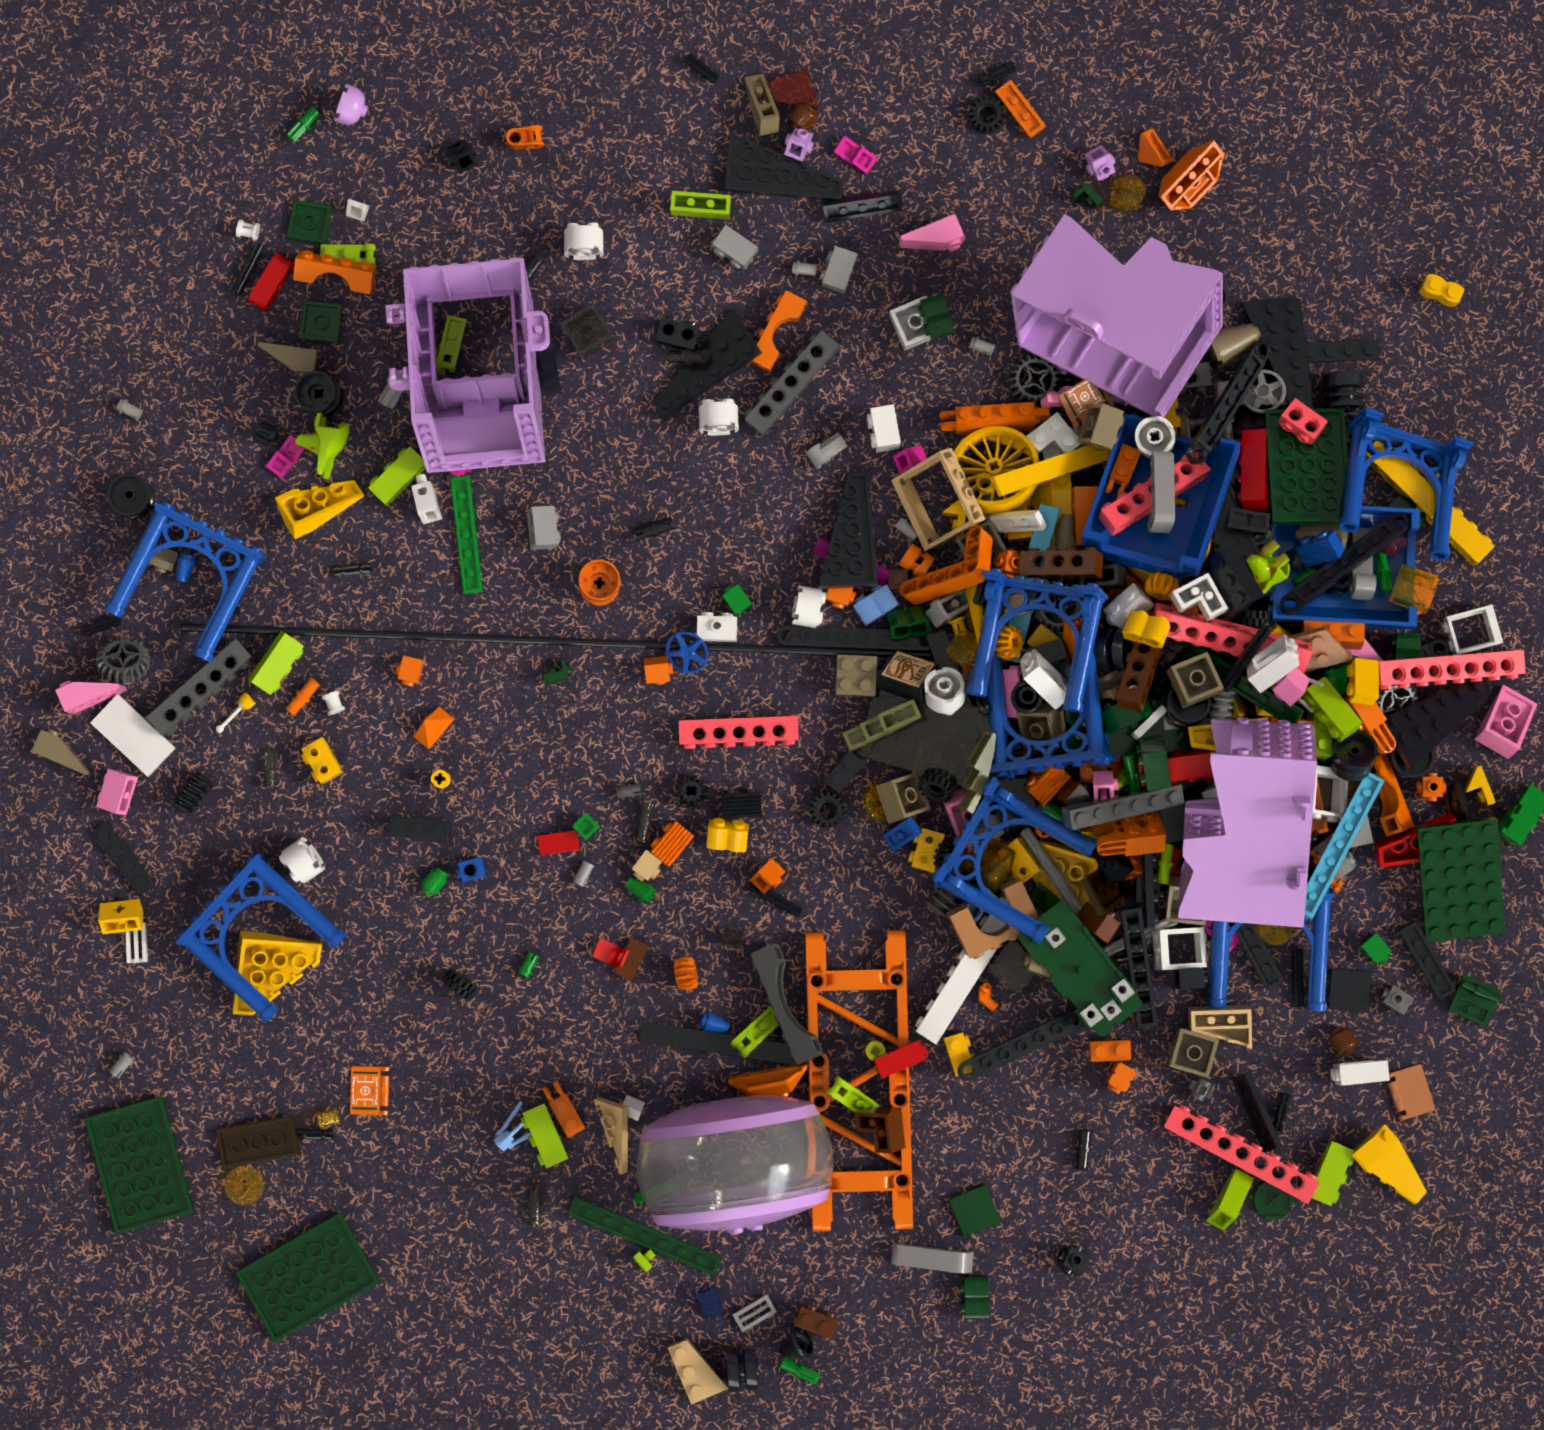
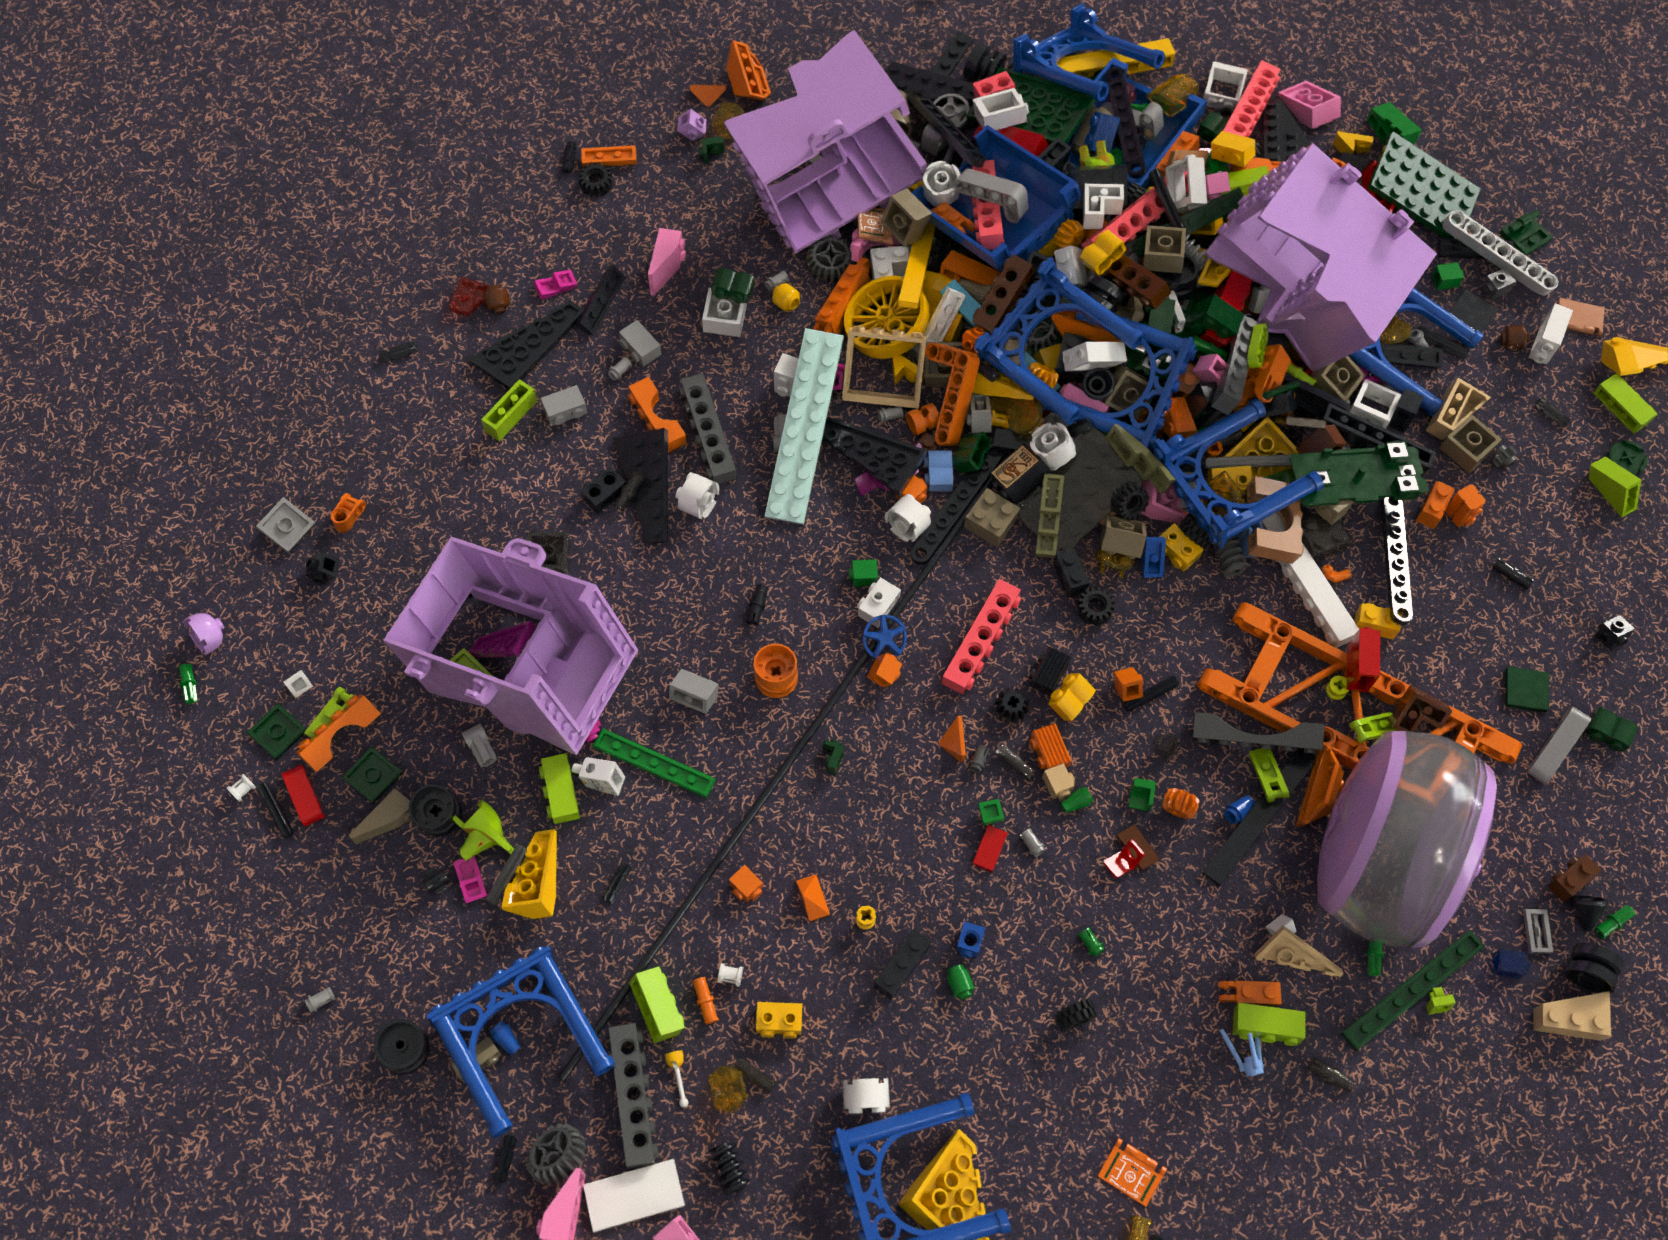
camera: 65 degrees left, 20 degrees down
(246, 755) = (727, 1088): none -> clear yellow plate
(304, 482) = (506, 874): none -> dark grey axle
(481, 98) = (285, 525): none -> light grey hinge
(481, 352) = (503, 643): none -> magenta wing
(583, 241) = (470, 513): white brick -> none
(632, 761) = (954, 741): none -> orange slope
(677, 938) = (1142, 794): none -> green panel
(762, 105) = (465, 323): dark tan slope -> none
(798, 144) = (522, 313): lavender brick -> none
(837, 466) = (804, 426): none -> light aqua plate
(967, 366) = (786, 297): none -> yellow head
(1121, 858) = (1281, 389): none -> dark green bar
(1150, 815) = (1257, 346): none -> lime beam
(1256, 1112) = (1545, 427): black plate -> none
(1266, 452) = (1001, 118): none -> white window
(1281, 953) = (1417, 338): none -> light grey pin
(1302, 1193) = (1634, 416): coral brick -> none
(1423, 994) = (1496, 244): none -> white beam

